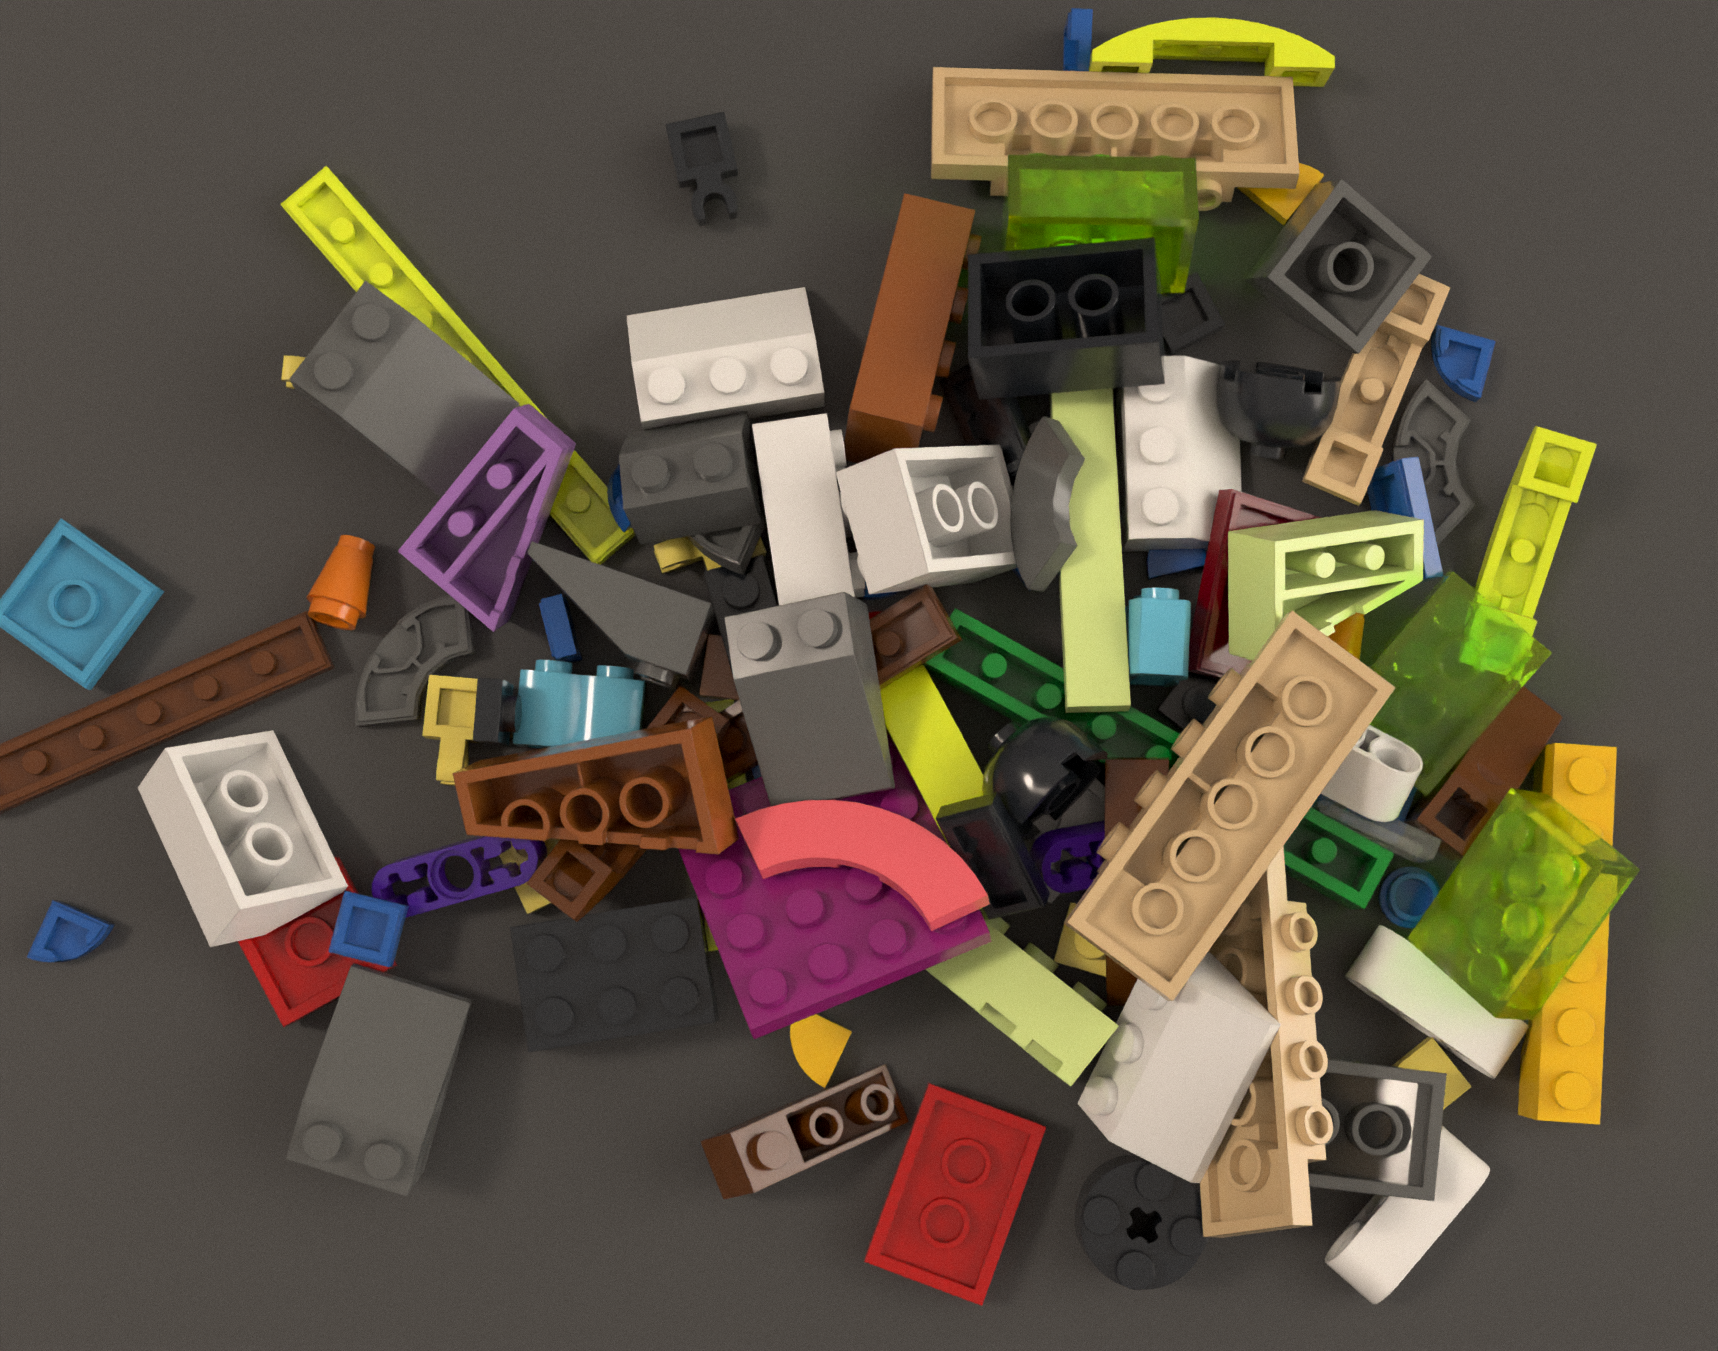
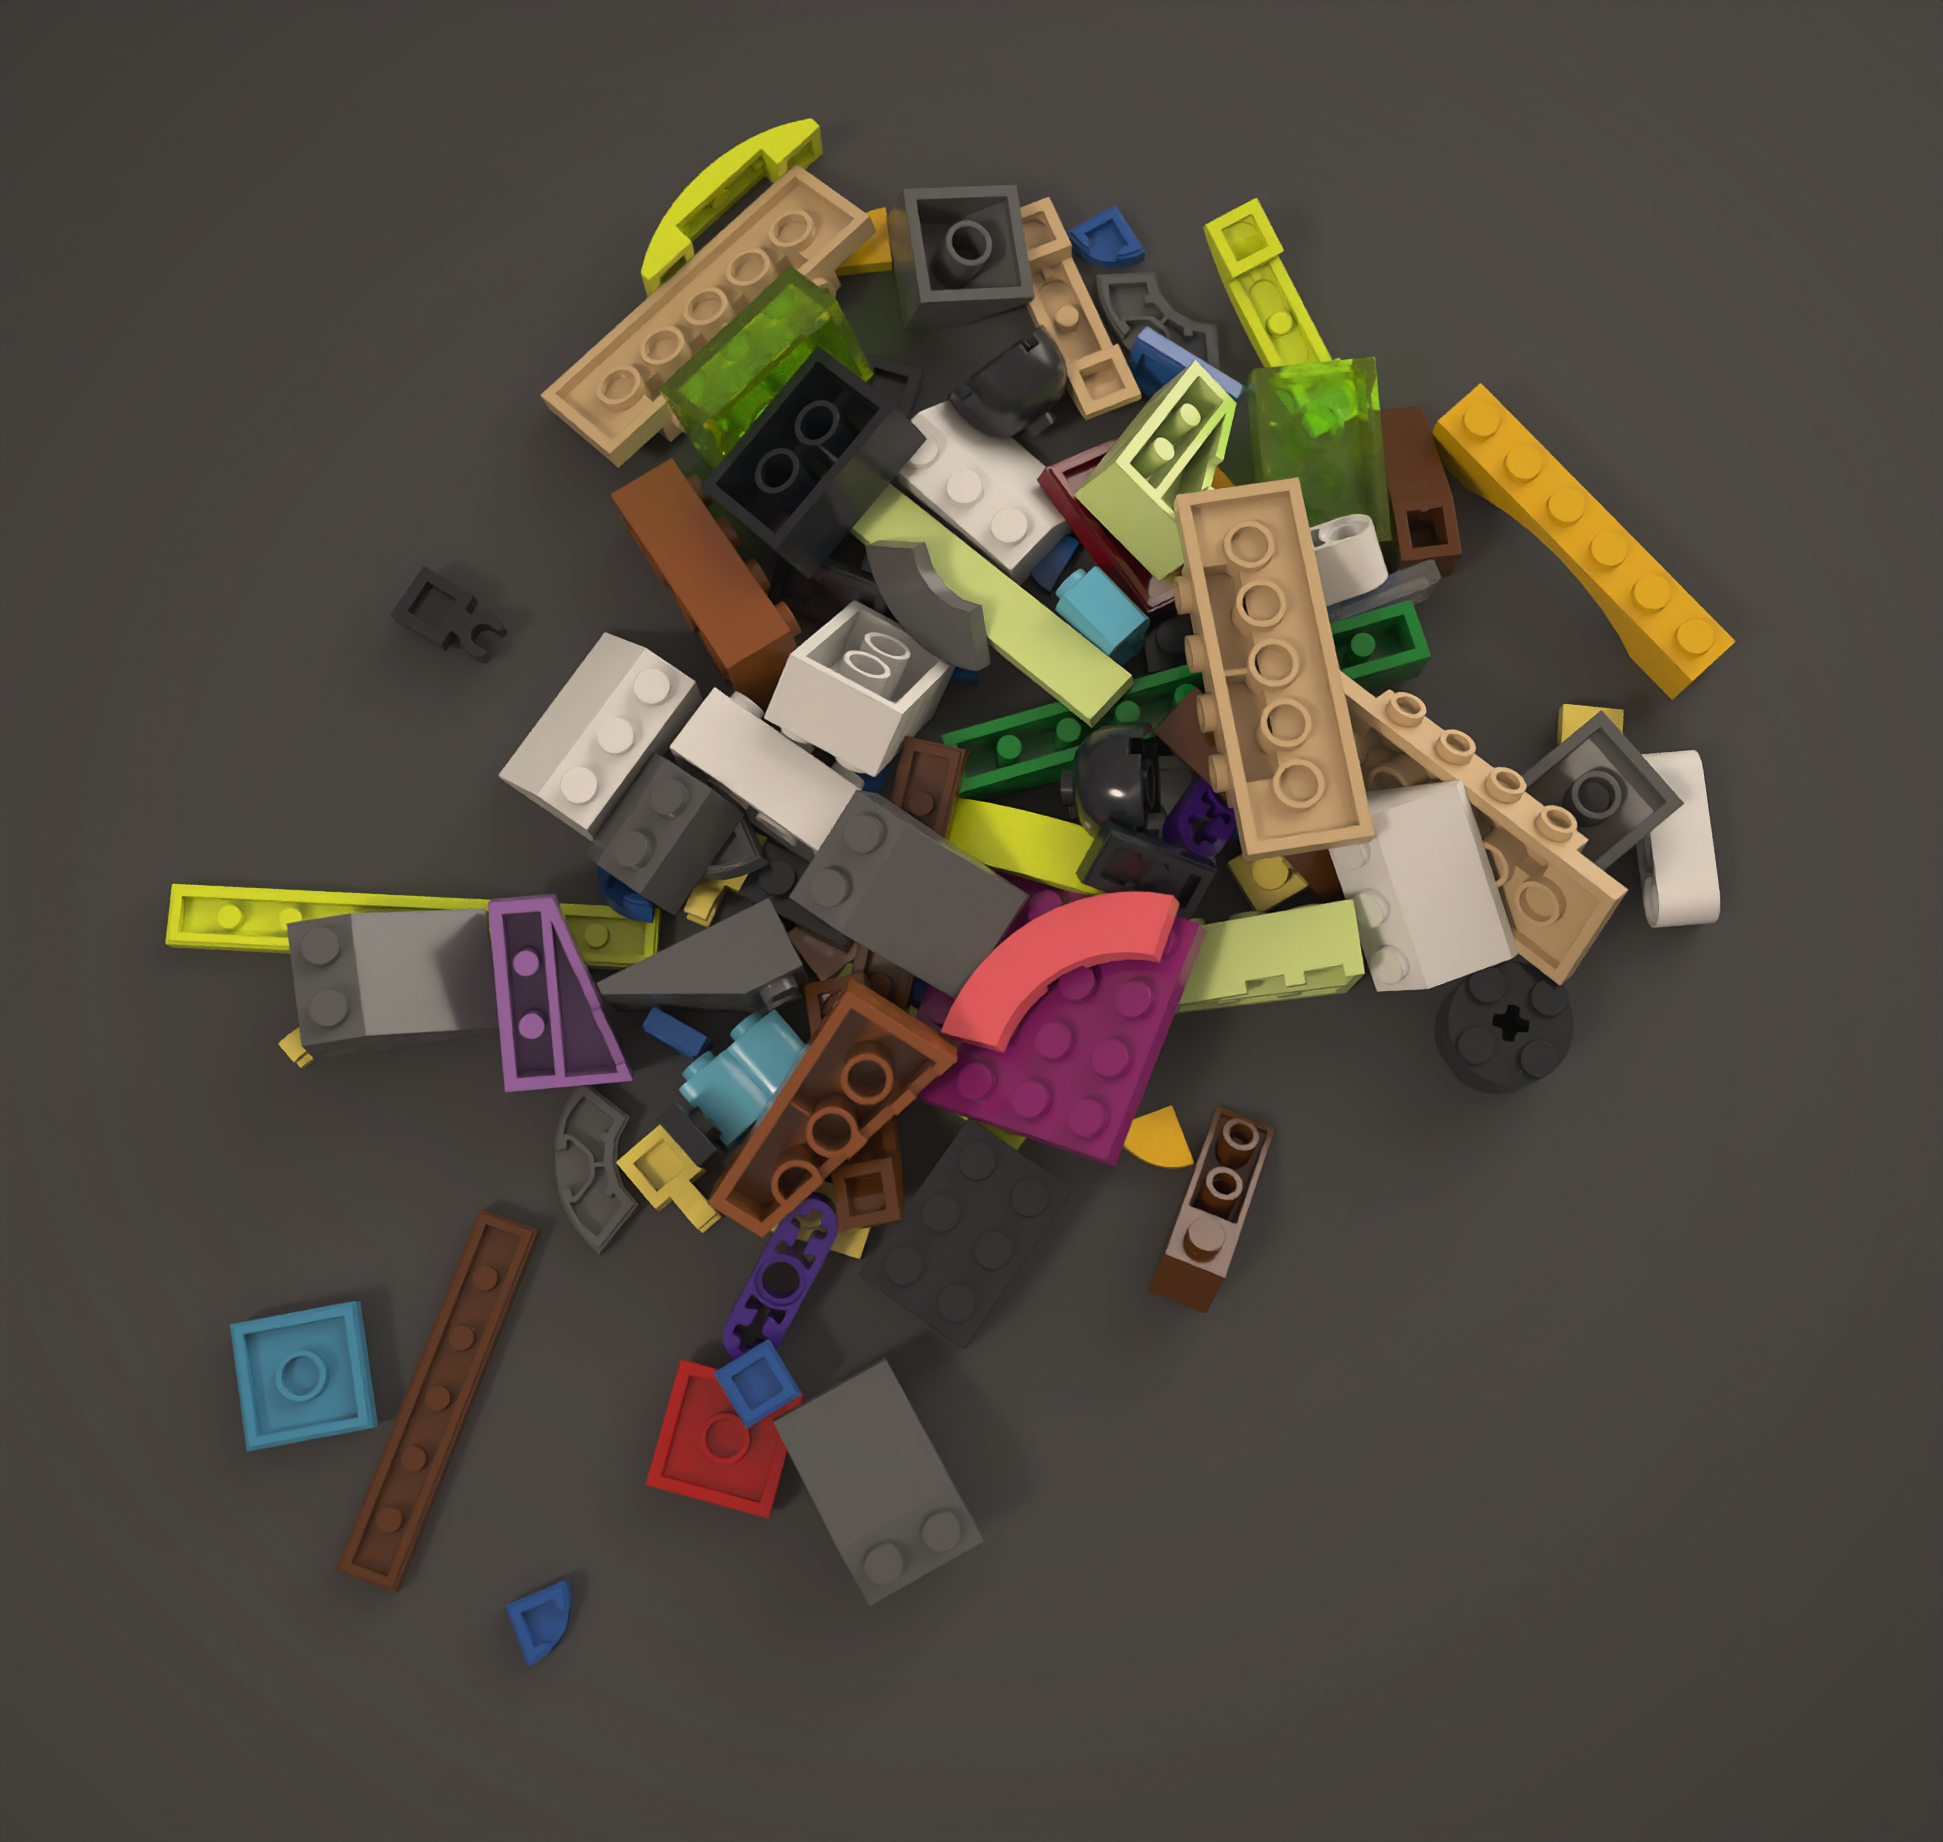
camera: 40 degrees left, 5 degrees down
(240, 835) = (596, 1413): white slope -> none
(343, 585) = (488, 1164): orange cone -> none
(955, 1193) = (1359, 1142): red plate -> none
(1077, 40) = (622, 279): blue tile -> none
(1407, 895) = (1450, 626): blue plate -> none
(1430, 1001) = (1541, 676): white beam -> none
(1522, 904) = (1531, 546): clear neon green brick -> none

